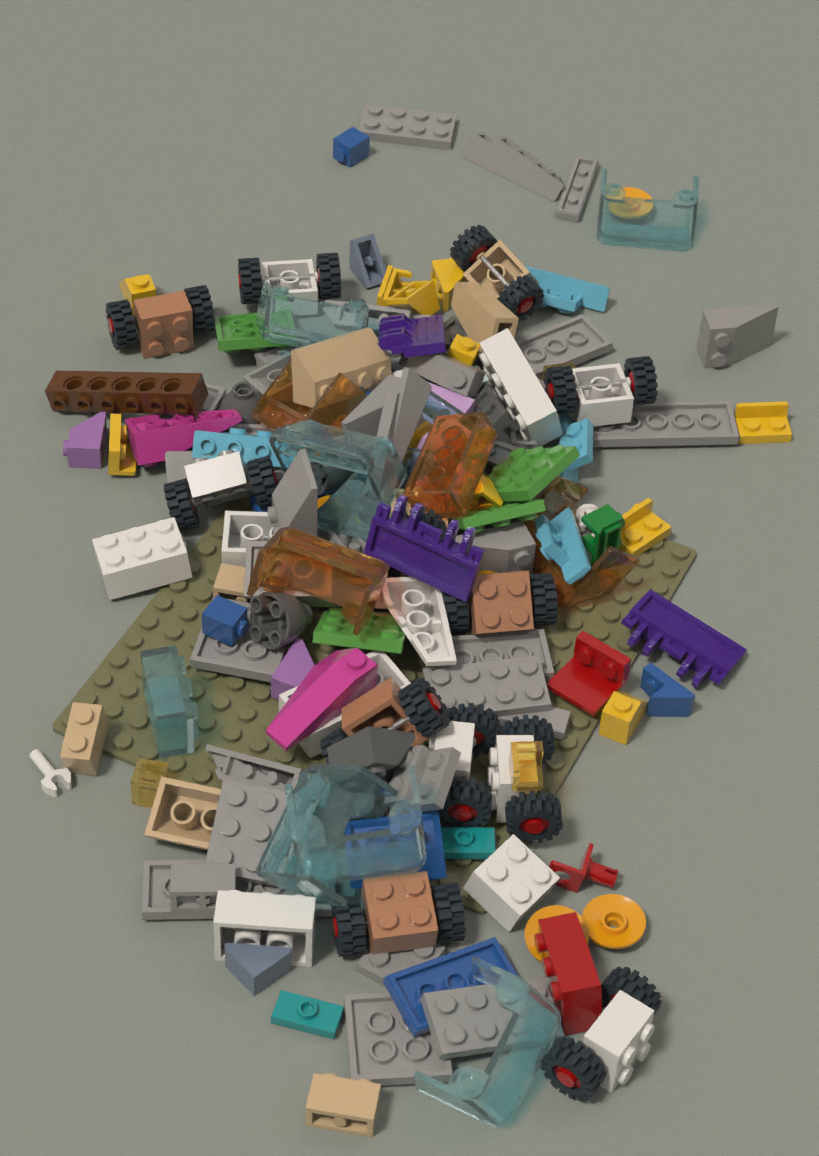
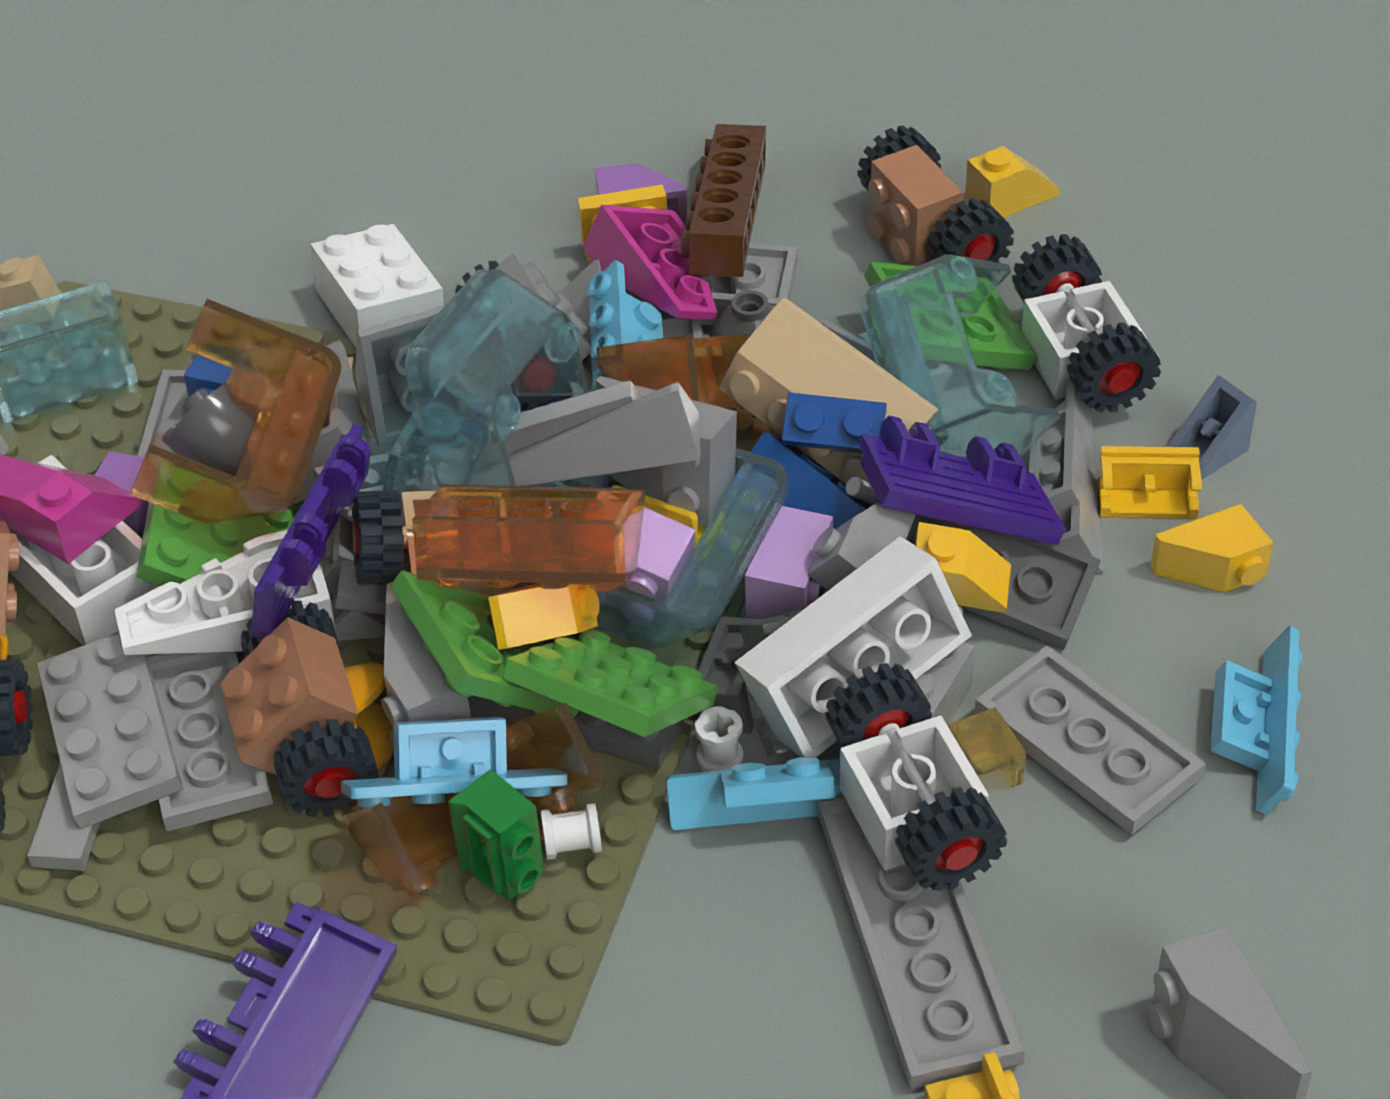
camera: 85 degrees right, 0 degrees up
(367, 365) = (830, 421): none -> blue plate
(417, 296) = (1110, 498): yellow slope -> none
(481, 312) = (1074, 592): tan slope -> none
(497, 271) = (1227, 597): brick -> none
(591, 674) = (161, 876): red bracket -> none
(621, 716) = (98, 949): yellow slope -> none
(642, 528) = (573, 917): yellow bracket -> none
(667, 695) = (146, 1018): blue slope -> none

